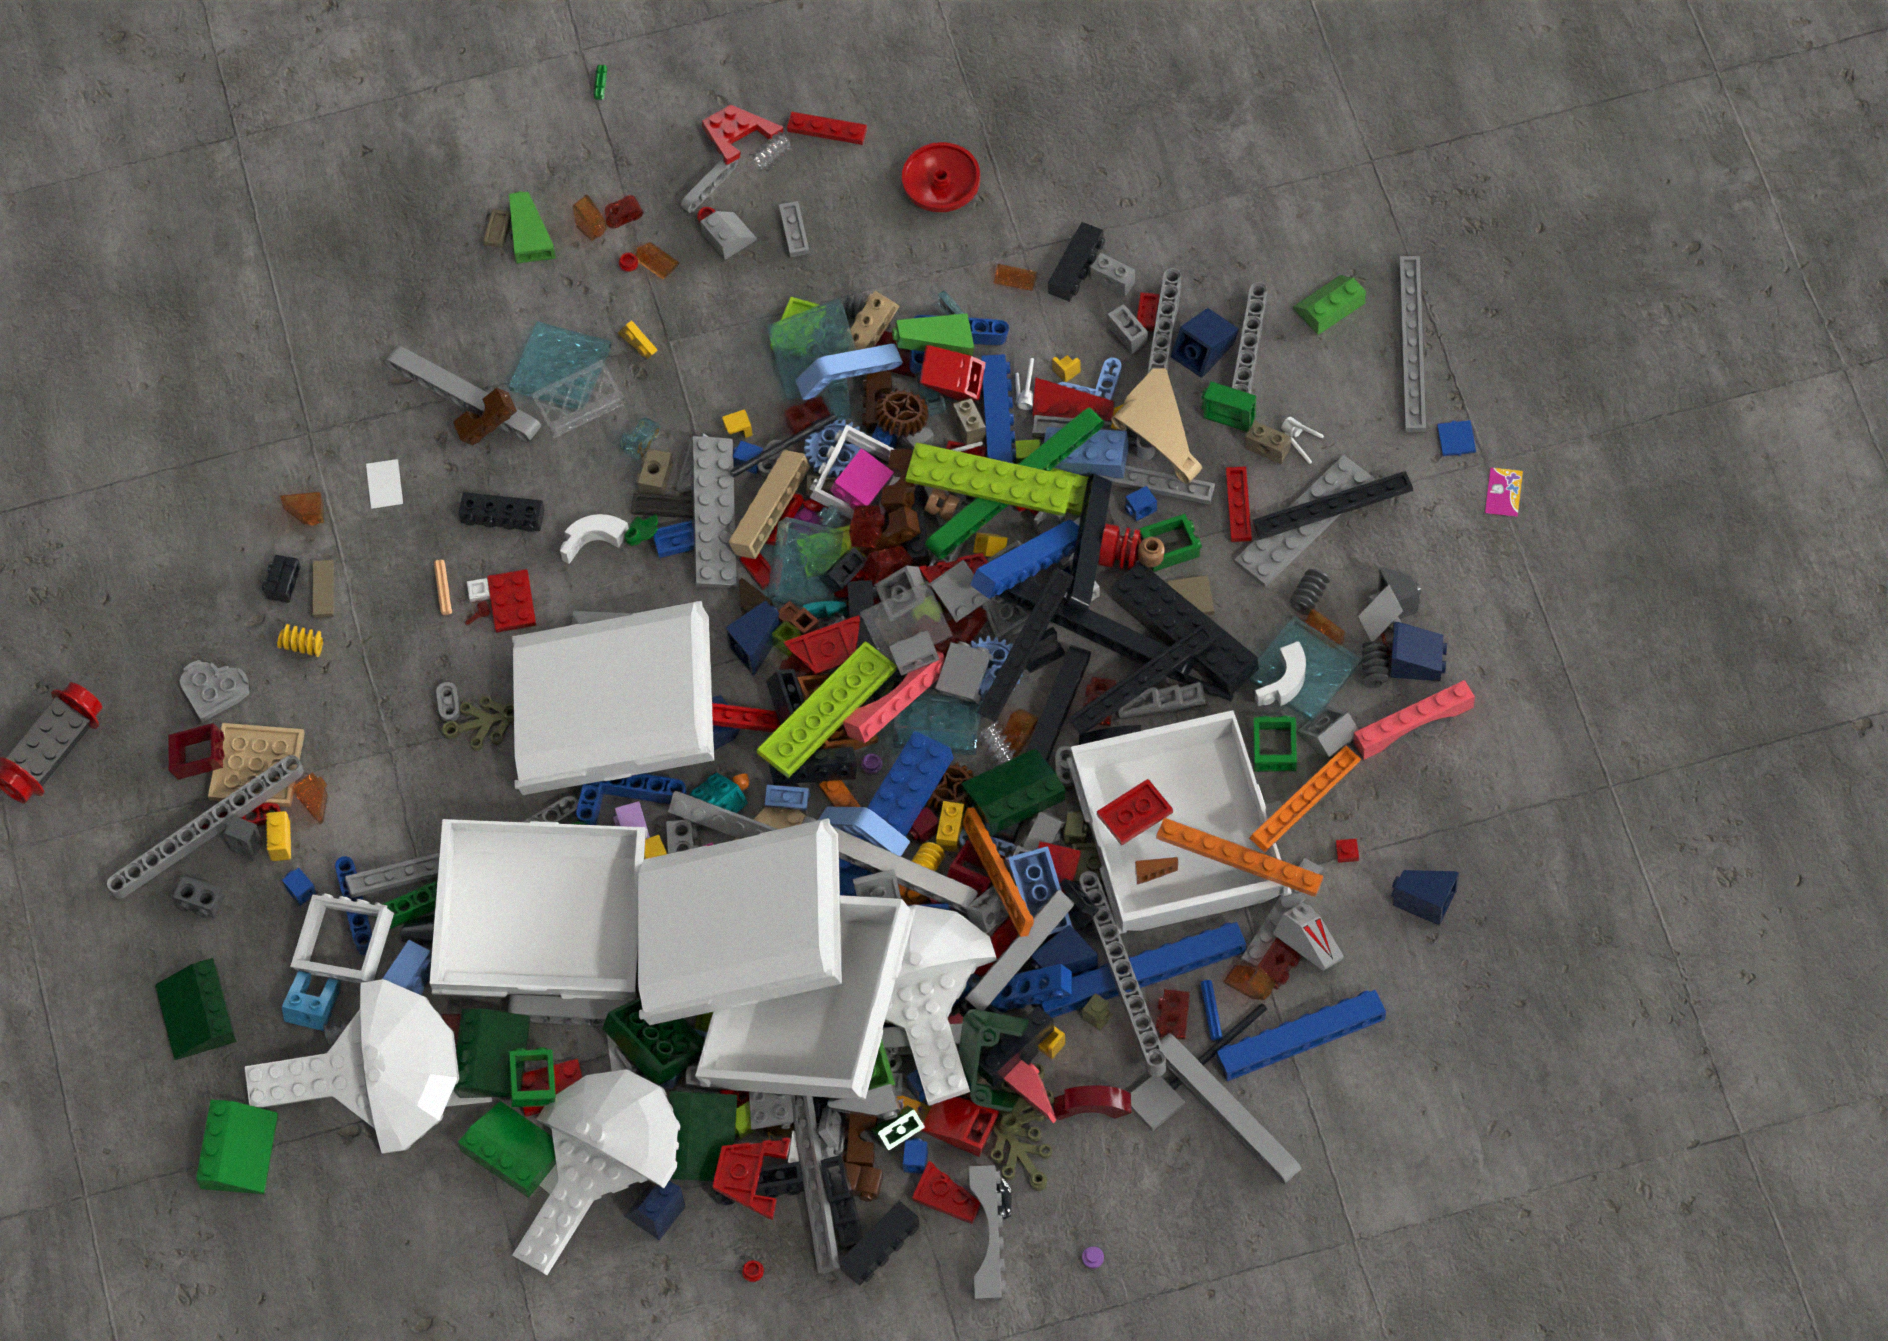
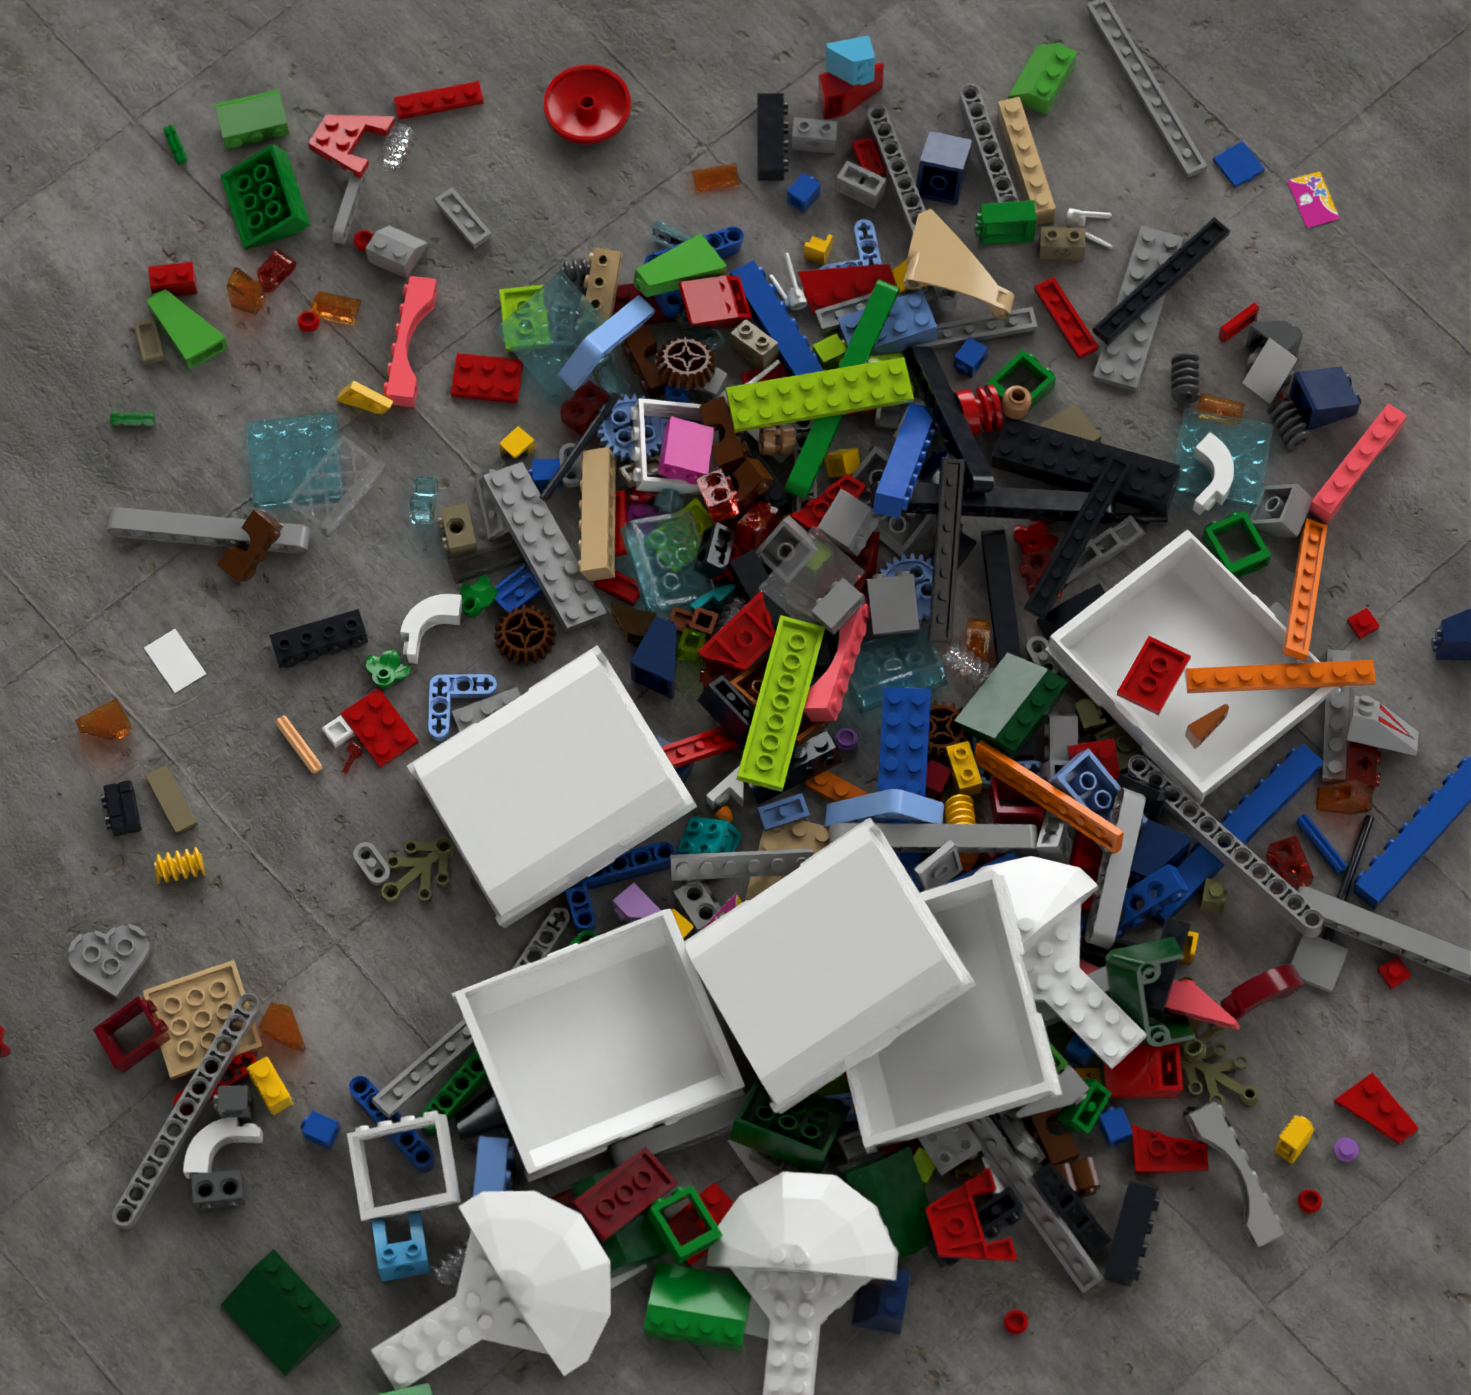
camera: 30 degrees left, 5 degrees up
(214, 857) = (214, 1137): none -> white arch
(451, 283) = (132, 418): none -> green axle
(497, 1033) = (624, 1194): none -> dark red plate
(540, 186) = (175, 278): none -> red brick
(541, 557) = (386, 665): none -> green plate
(581, 596) = (451, 691): none -> light blue beam
(647, 151) = (265, 198): none -> green slope
(665, 585) = (535, 634): none -> reddish brown gear
(668, 84) = (252, 119): none -> bright green slope
(722, 281) = (419, 301): none -> coral arch
(744, 363) = (487, 378): none -> red plate
(751, 761) = (727, 787): none -> white slope
(1040, 1284) = (1309, 1201): none -> red plate
(1051, 1227) = (1294, 1138): none -> yellow brick
(1079, 317) = (803, 192): none -> blue brick
(1113, 668) = (1034, 537): none -> red plate
(1138, 1236) = (1376, 1106): none -> red wing
(1160, 248) = (840, 98): none -> red slope
(1164, 222) = (851, 60): none -> medium azure slope
(1213, 1137) = (1394, 973): none -> red plate
(1275, 364) = (1025, 158): none -> tan brick
(1372, 566) = (1238, 322): none -> red tile

